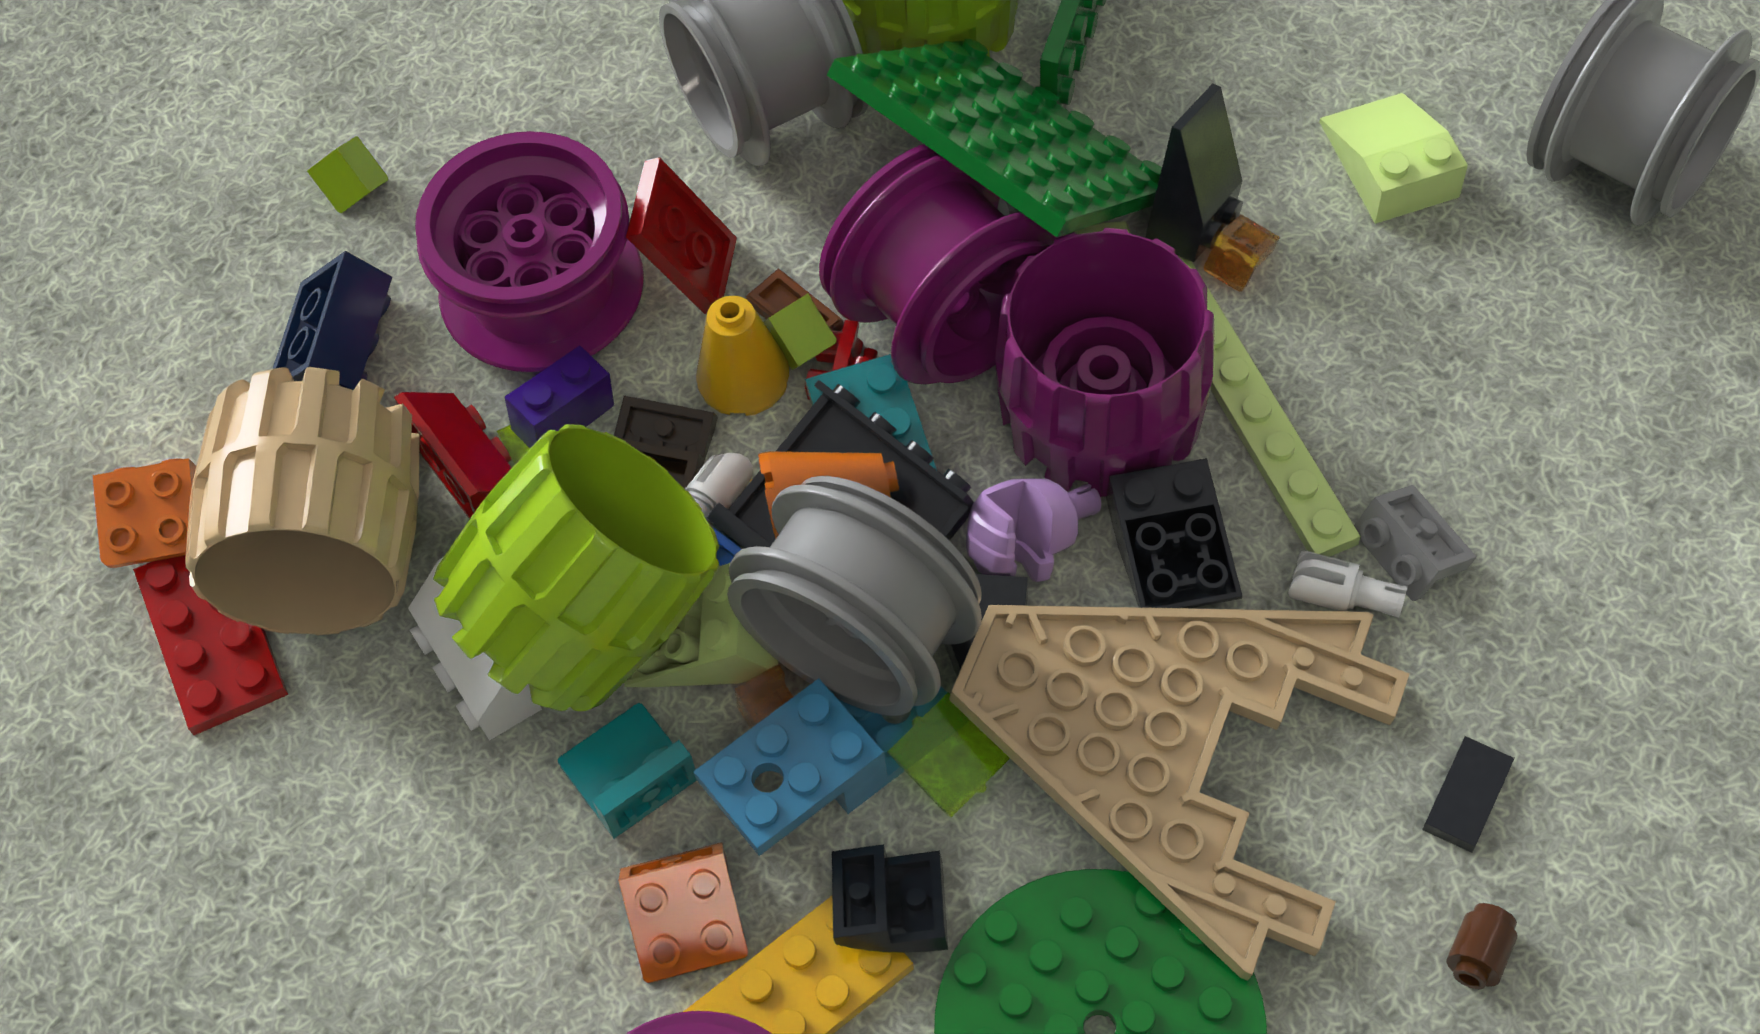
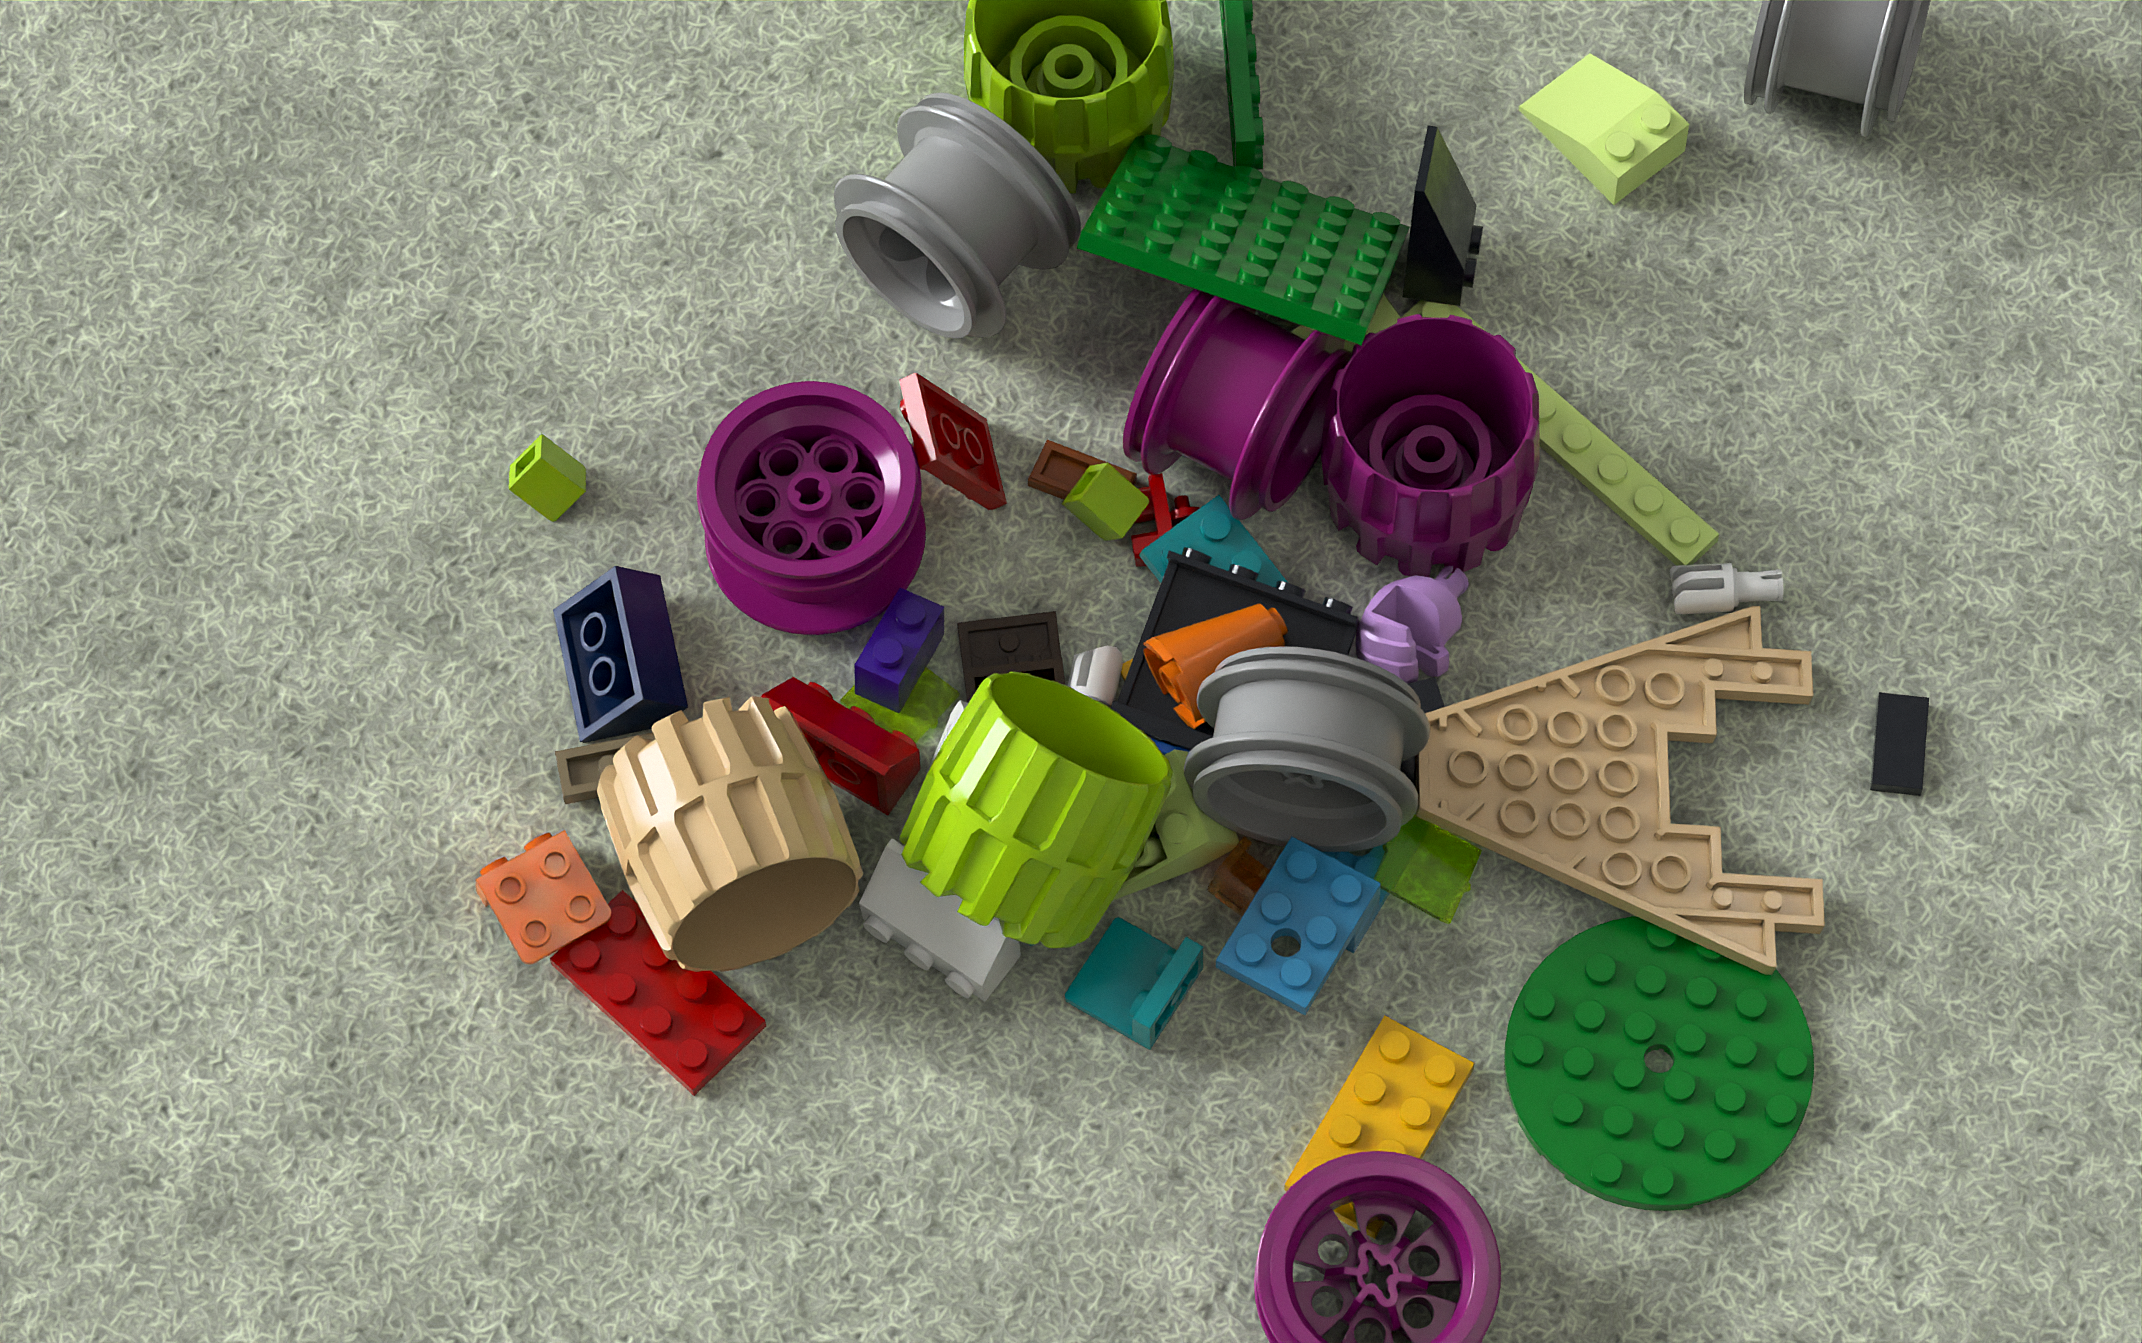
camera: 25 degrees left, 5 degrees up
(682, 912) = (1248, 1089): orange bracket -> none
(739, 360) = (1059, 553): yellow cone -> none
(888, 900) = (1432, 1015): black slope -> none
(1172, 536) = (1550, 593): black slope -> none
(1239, 252) = (1498, 279): clear orange bracket -> none
(1412, 540) = (1767, 522): light grey bracket -> none
(1482, 946) = (1959, 874): reddish brown brick -> none

